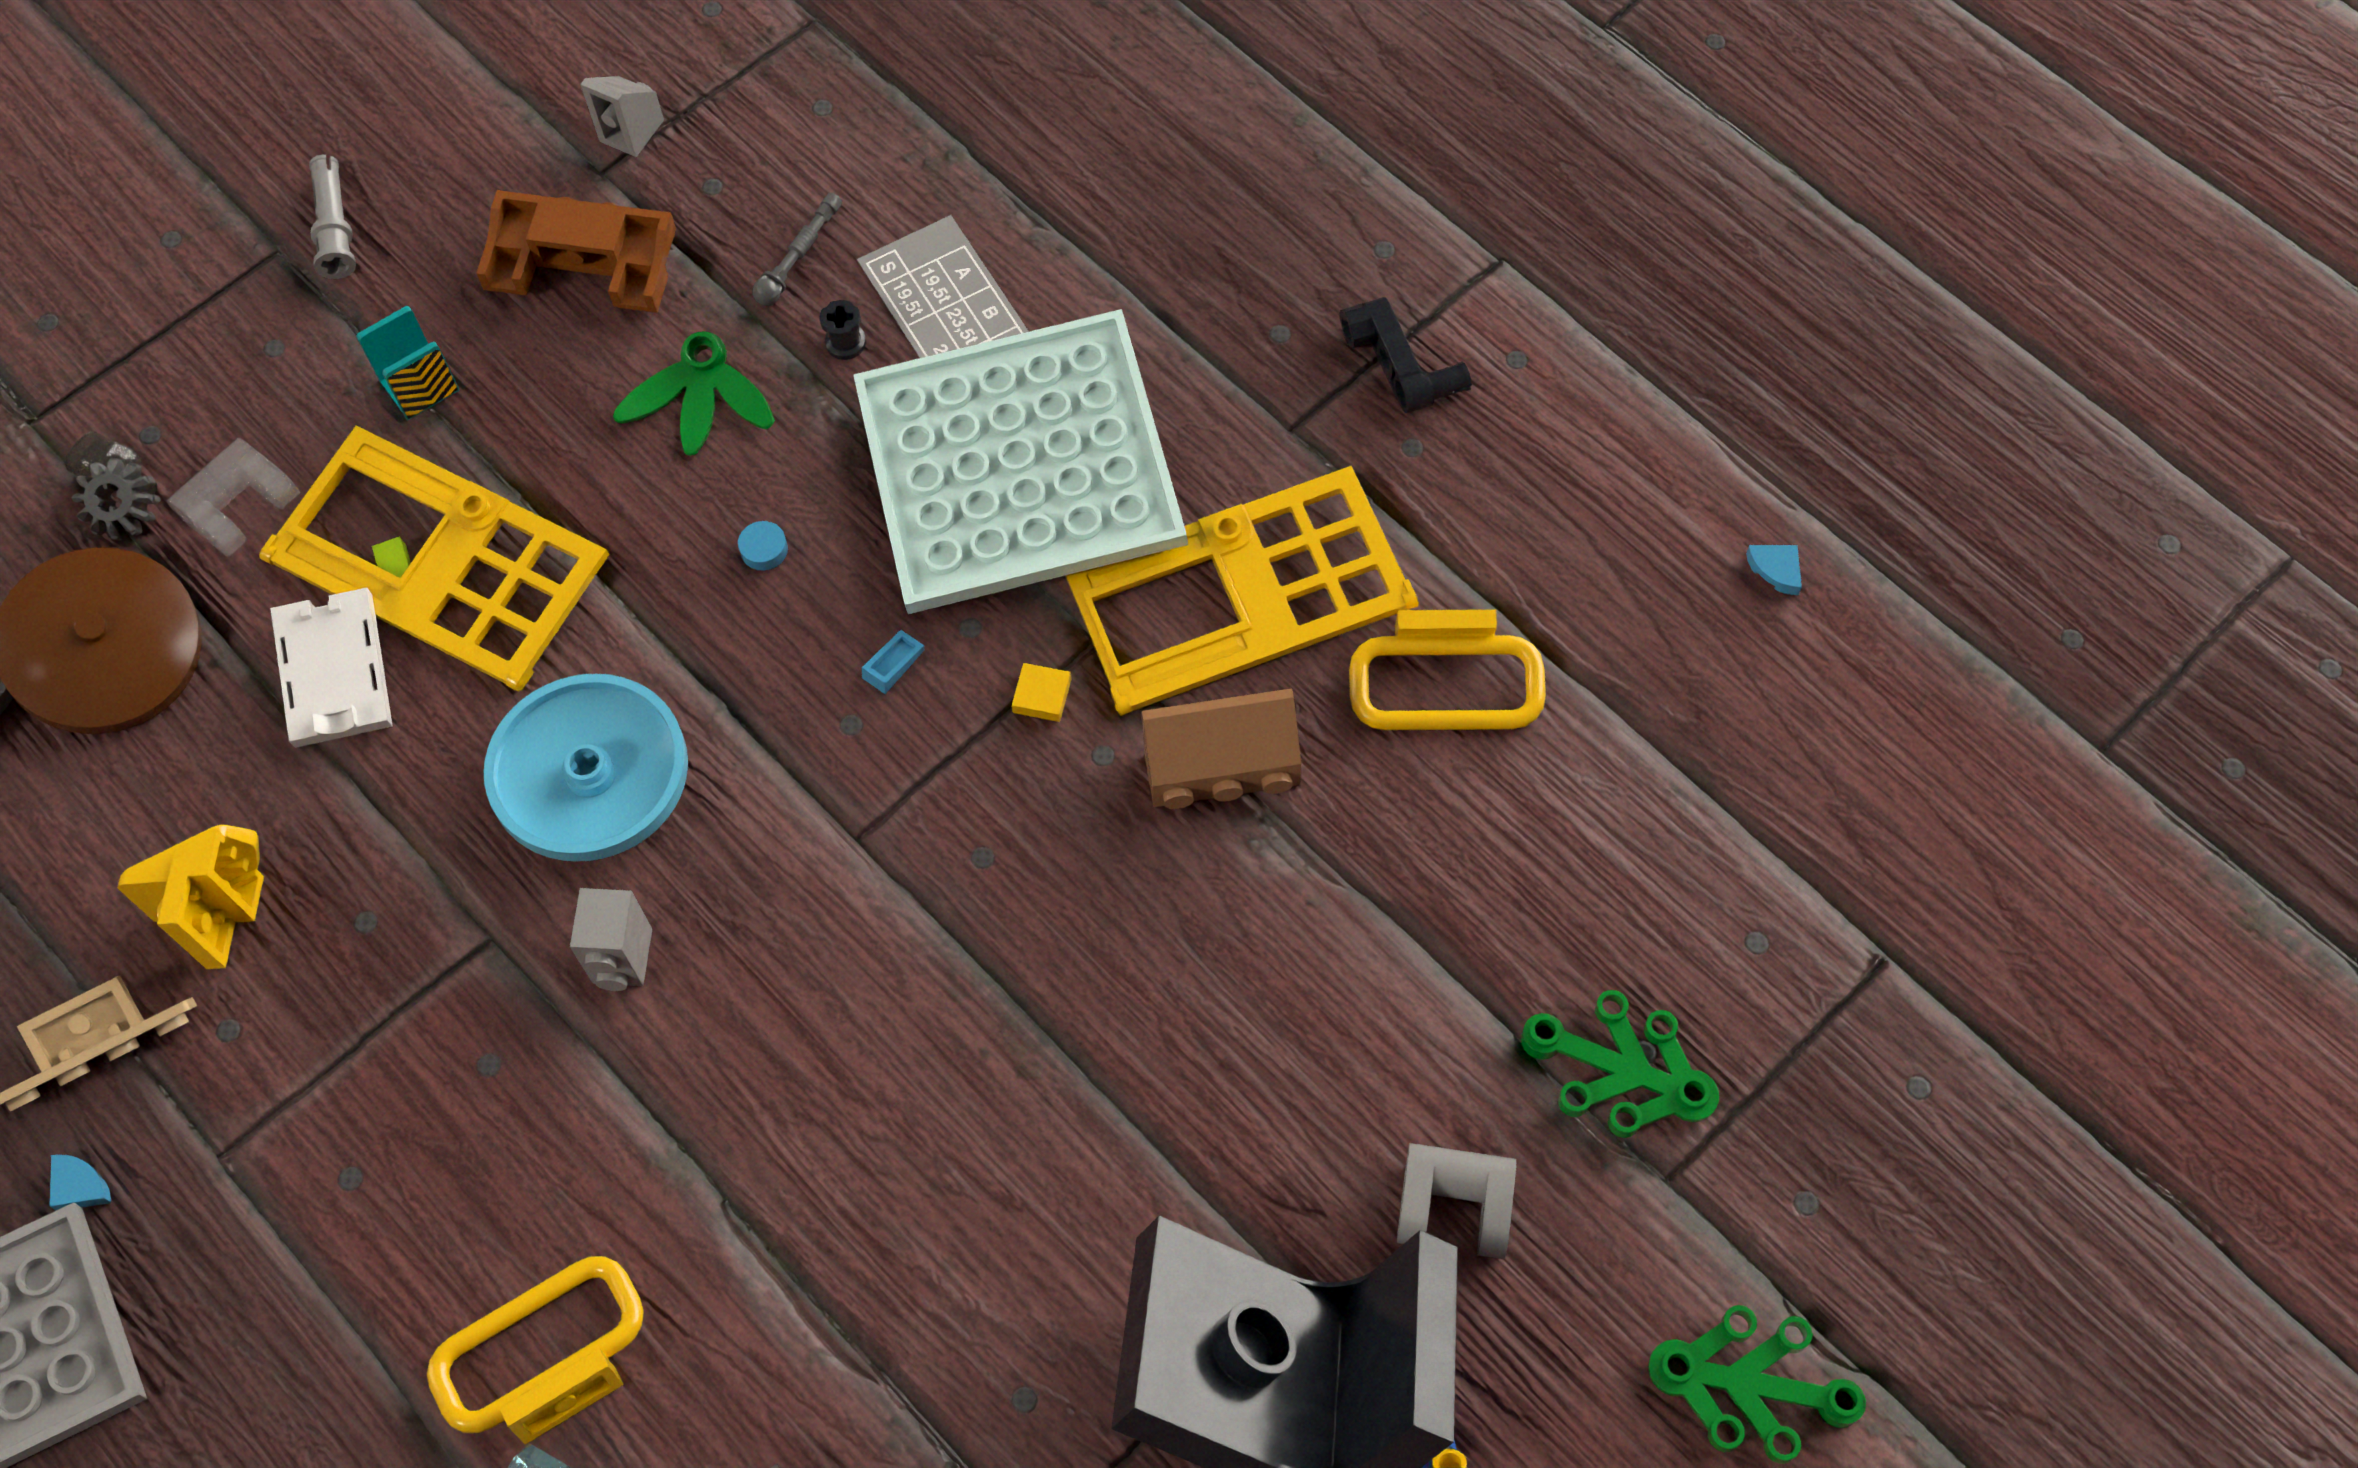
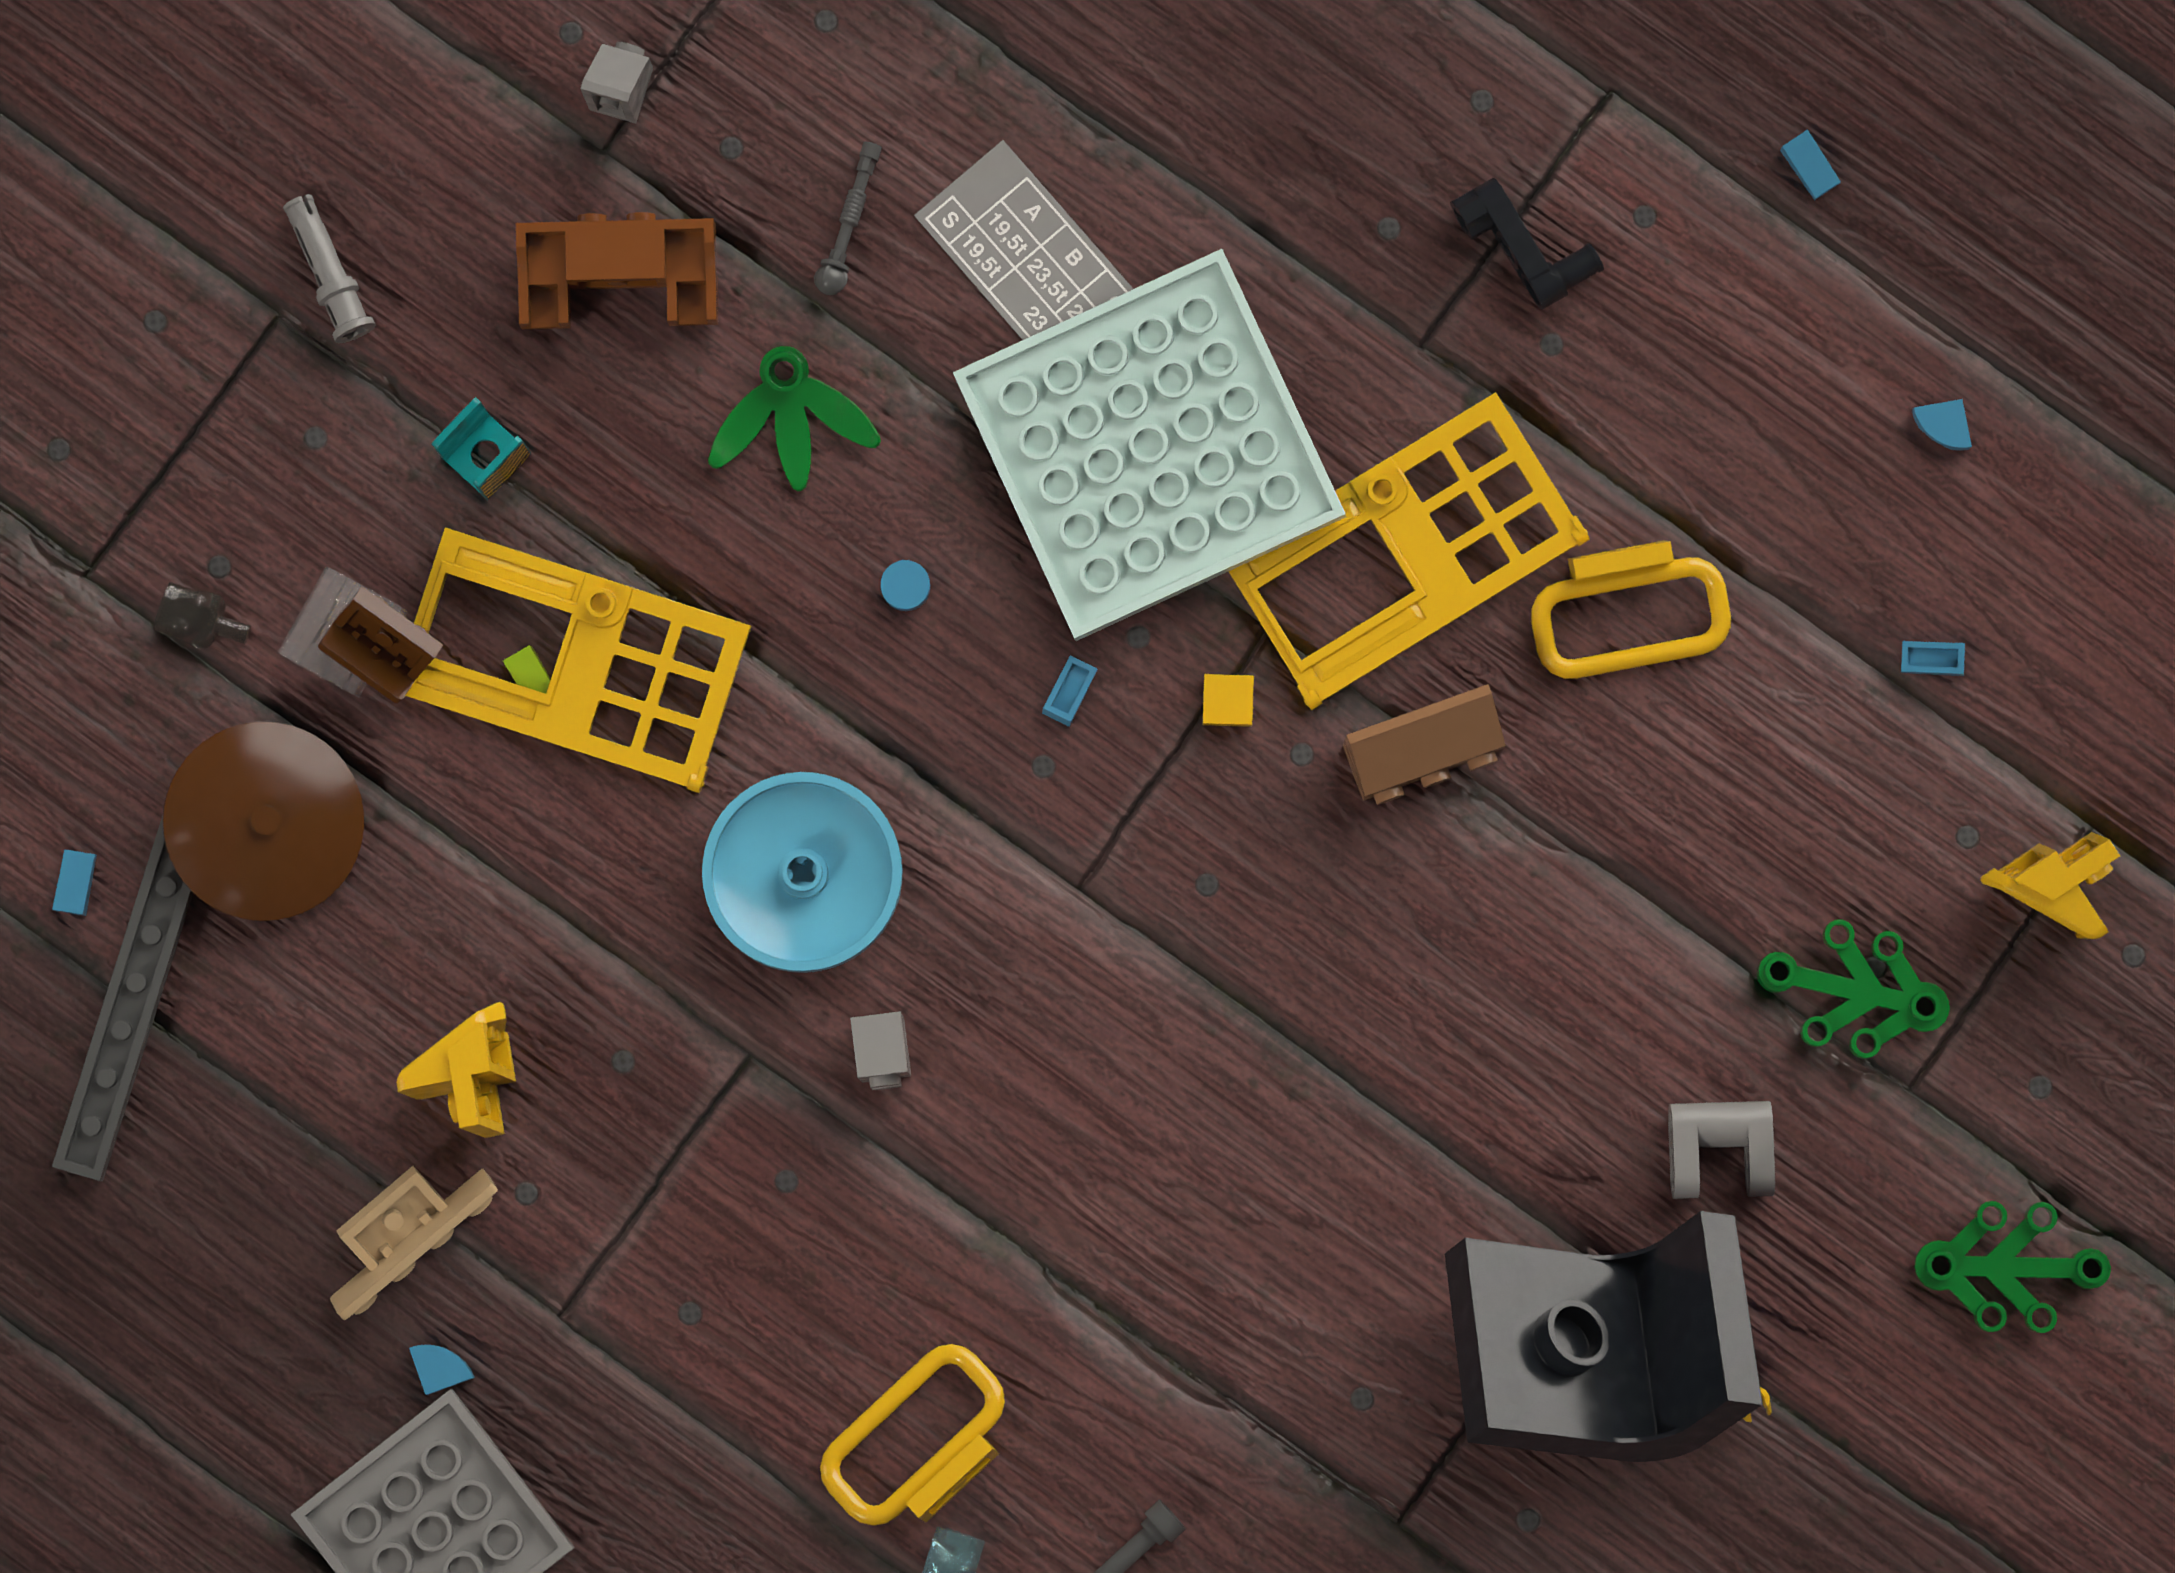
camera: 10 degrees left, 20 degrees up
(129, 488) = (211, 647): dark grey gear -> none
(254, 499) = (379, 645): none -> reddish brown bracket
(330, 667) = (507, 805): white piece -> none
(844, 335) = (937, 307): black bush -> none
(1676, 338) = (1810, 164): none -> dark azure piece
(1742, 769) = (1933, 658): none -> dark azure piece
(1845, 990) = (2051, 882): none -> yellow piece

